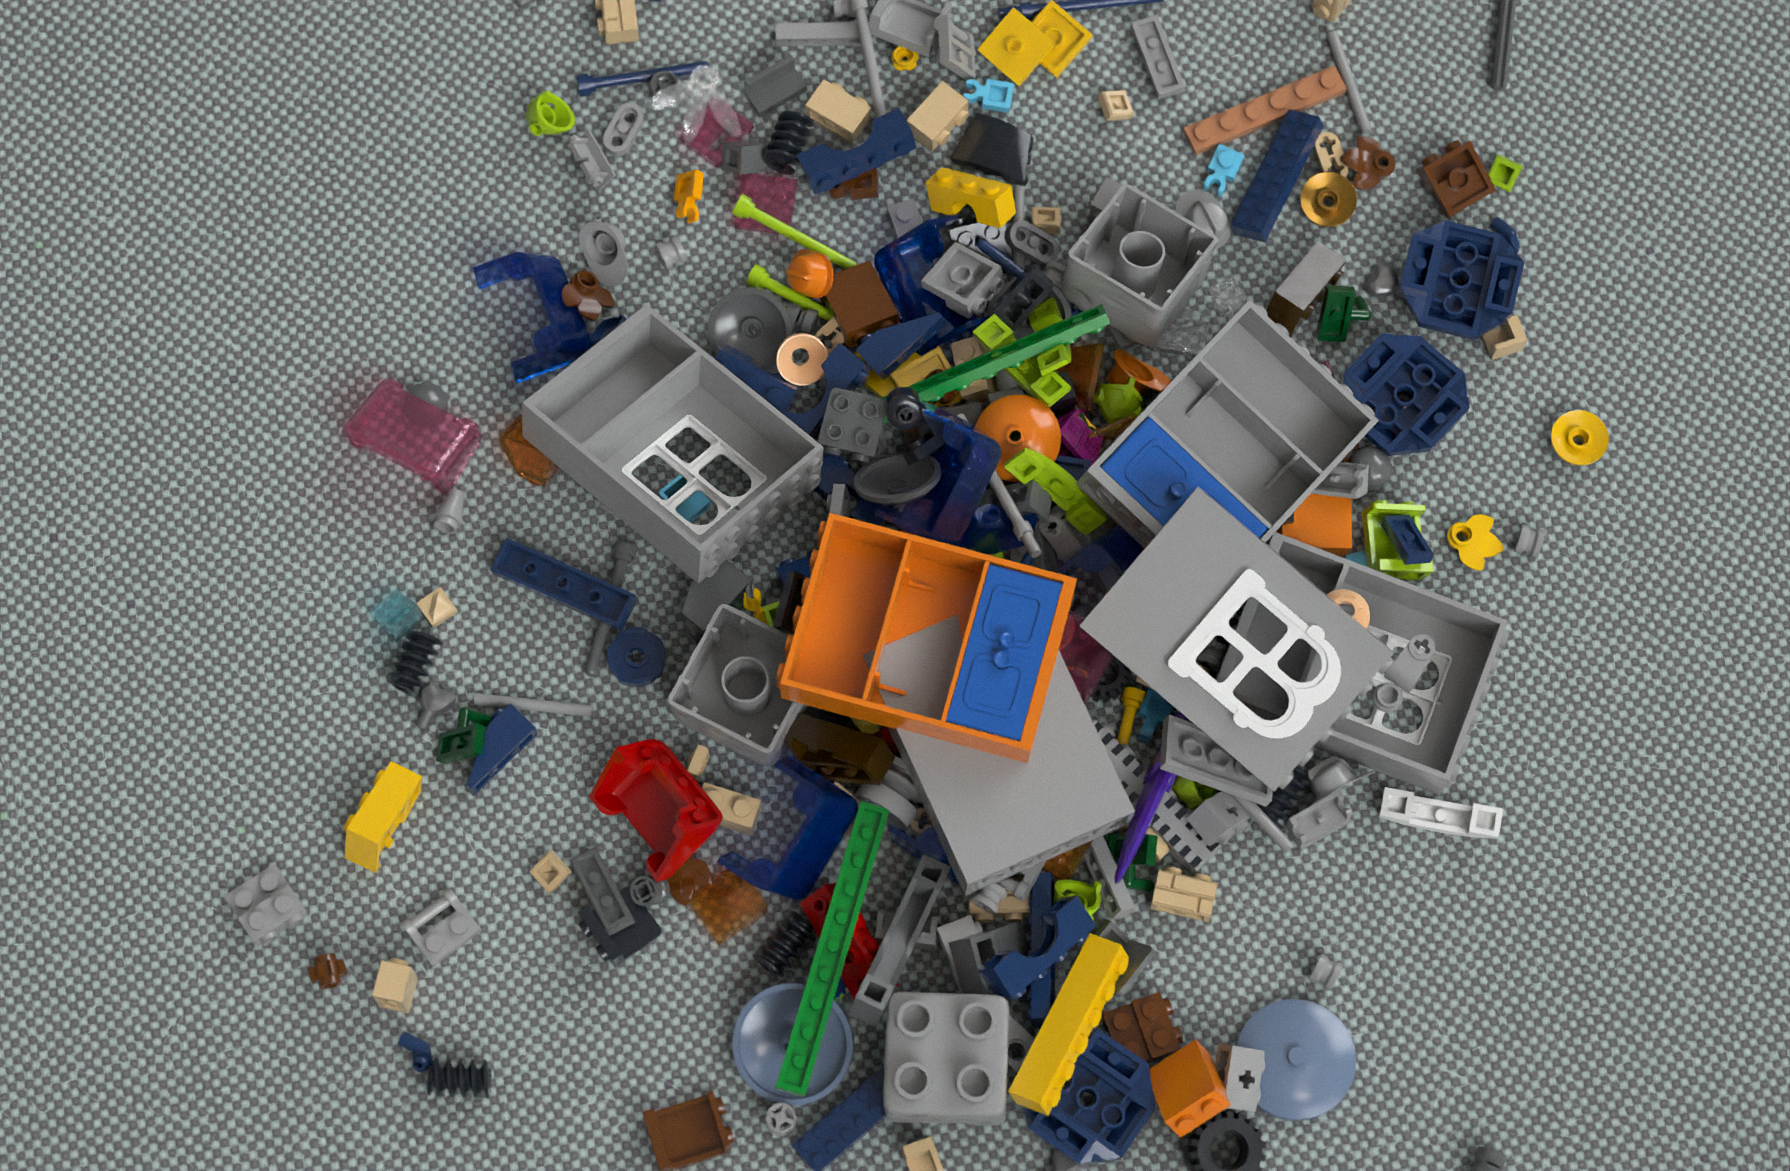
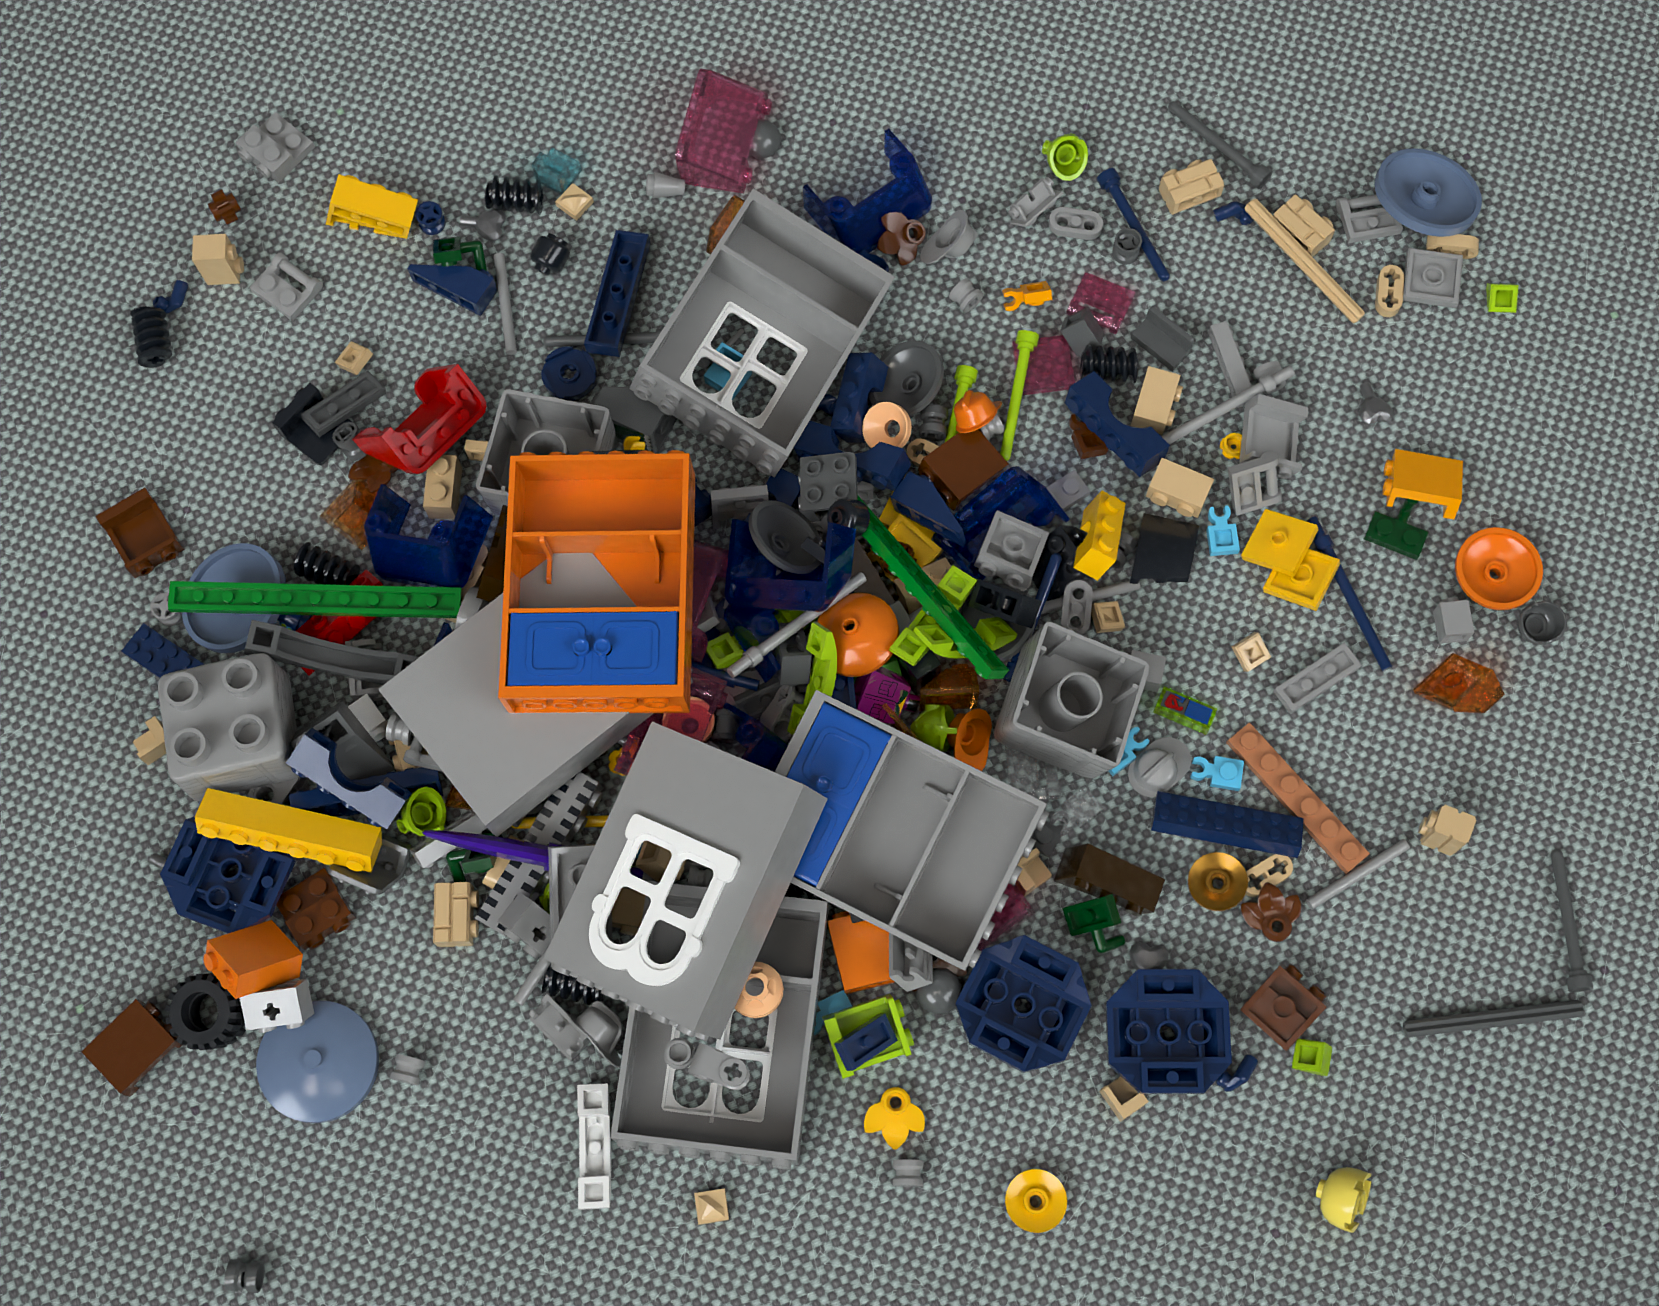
camera: 80 degrees right, 0 degrees up
(406, 752) = (427, 211): none -> dark blue wheel
(494, 643) = (549, 254): none -> black head
(699, 95) = (1113, 275): clear plant -> none
(1159, 175) = (1185, 710): none -> slope
(1518, 723) = (711, 1206): none -> tan tile
(1635, 181) = (1344, 1197): none -> light yellow cylinder

